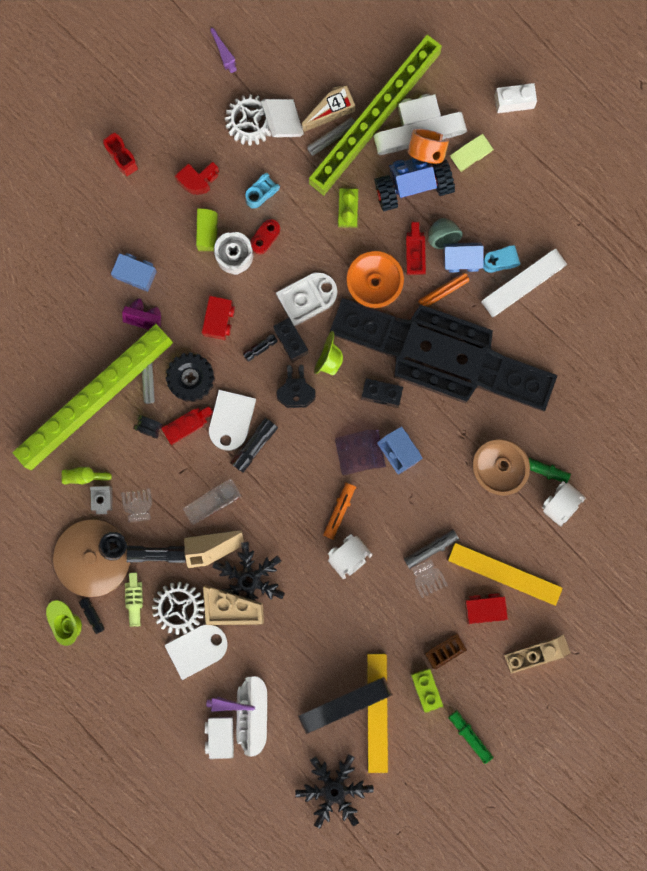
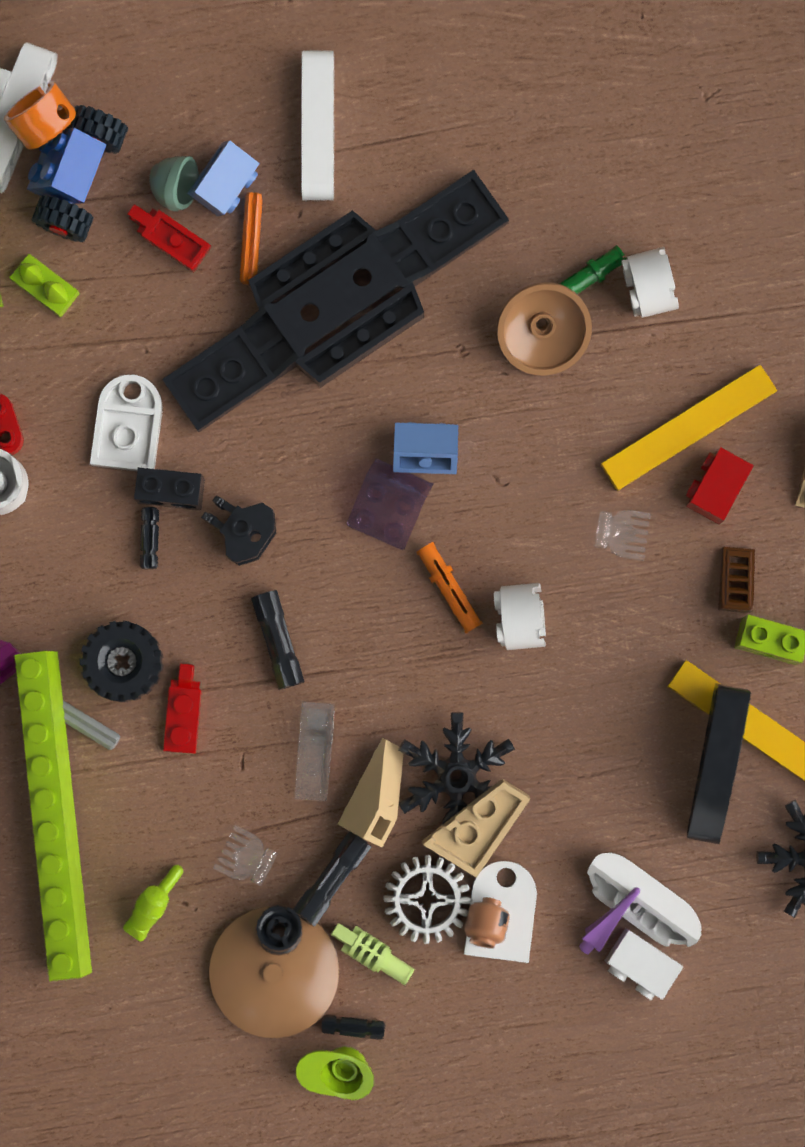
camera: 60 degrees left, 0 degrees up
(106, 493) = (194, 891): light grey brick -> none
(147, 426) = (148, 767): black wheel -> none
(186, 645) = (486, 923): none -> nougat head
(217, 318) = (67, 566): red brick -> none
(231, 418) = (218, 645): white tile -> none
(330, 358) = (231, 451): lime piece -> none
(375, 266) = (167, 296): orange dish -> none
(382, 393) = (331, 417): black brick -> none
(432, 548) = (587, 500): dark grey pin -> none
(471, 152) = (90, 69): yellowish green slope -> none
(504, 259) = (265, 129): medium azure piece -> none

